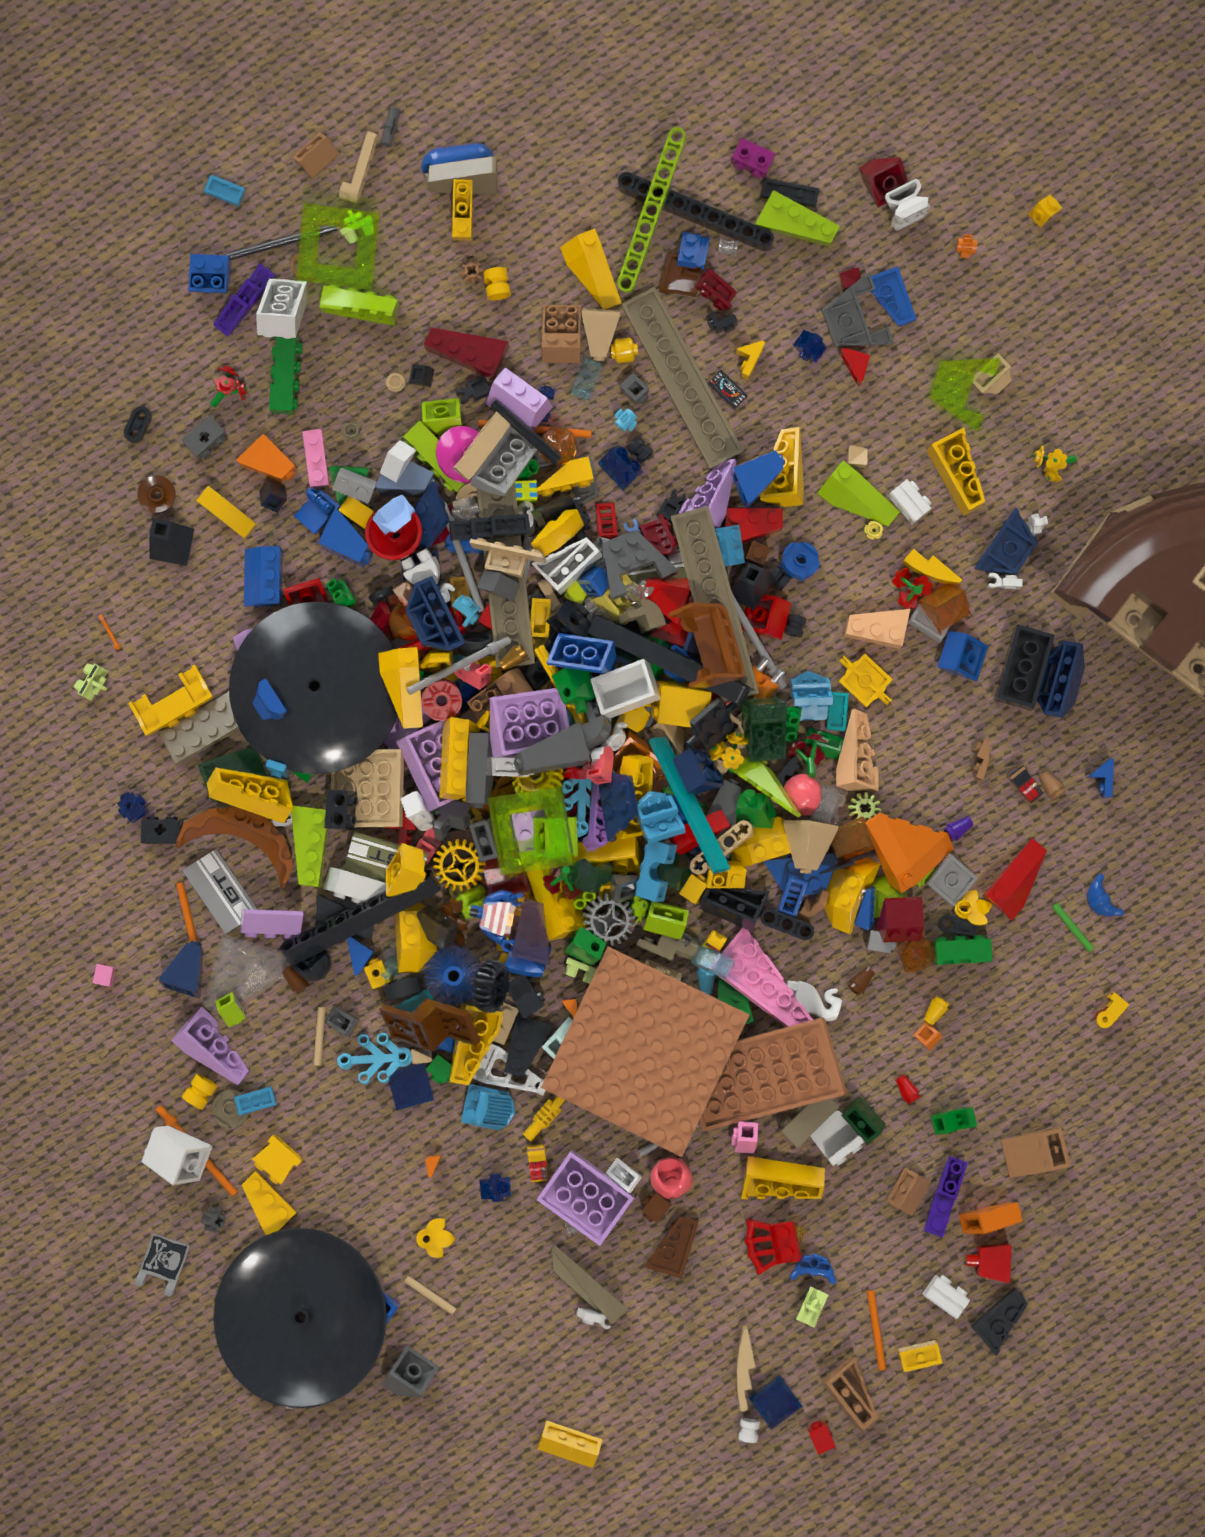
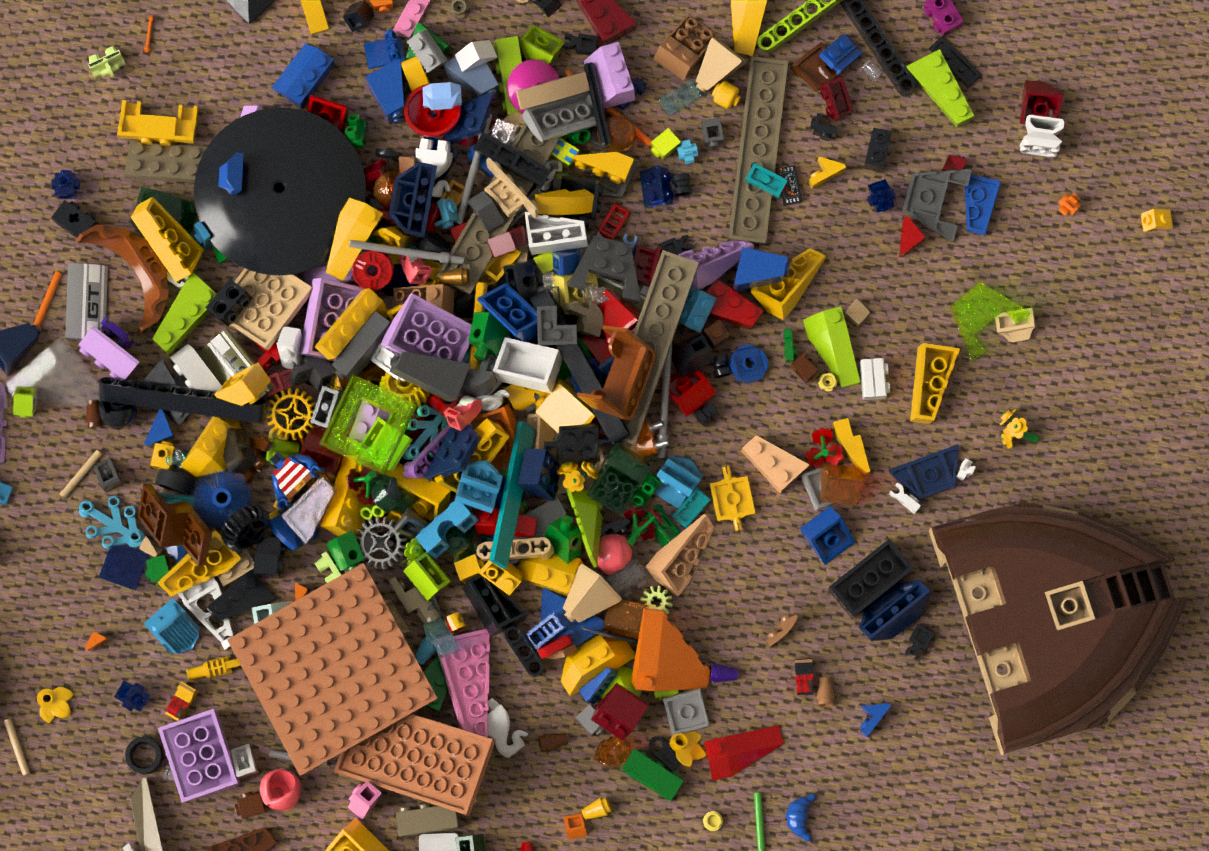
camera: 30 degrees right, 5 degrees down
(259, 899) = (113, 329): none -> dark purple plate
(534, 598) = (508, 241): none -> slope
(539, 1213) = (129, 755): none -> black tyre
(602, 426) = (665, 144): none -> neon yellow brick
(627, 649) = (549, 332): none -> dark grey plate
(708, 398) = (766, 180): none -> teal plate
(779, 309) = (877, 150): none -> black brick
(810, 902) = (555, 646): none -> red beam
(824, 525) = (790, 351): none -> green plate
(848, 531) = (805, 368): none -> reddish brown brick
(1035, 953) = (713, 821): none -> light yellow plate
(1097, 687) = (920, 639): none -> black plate

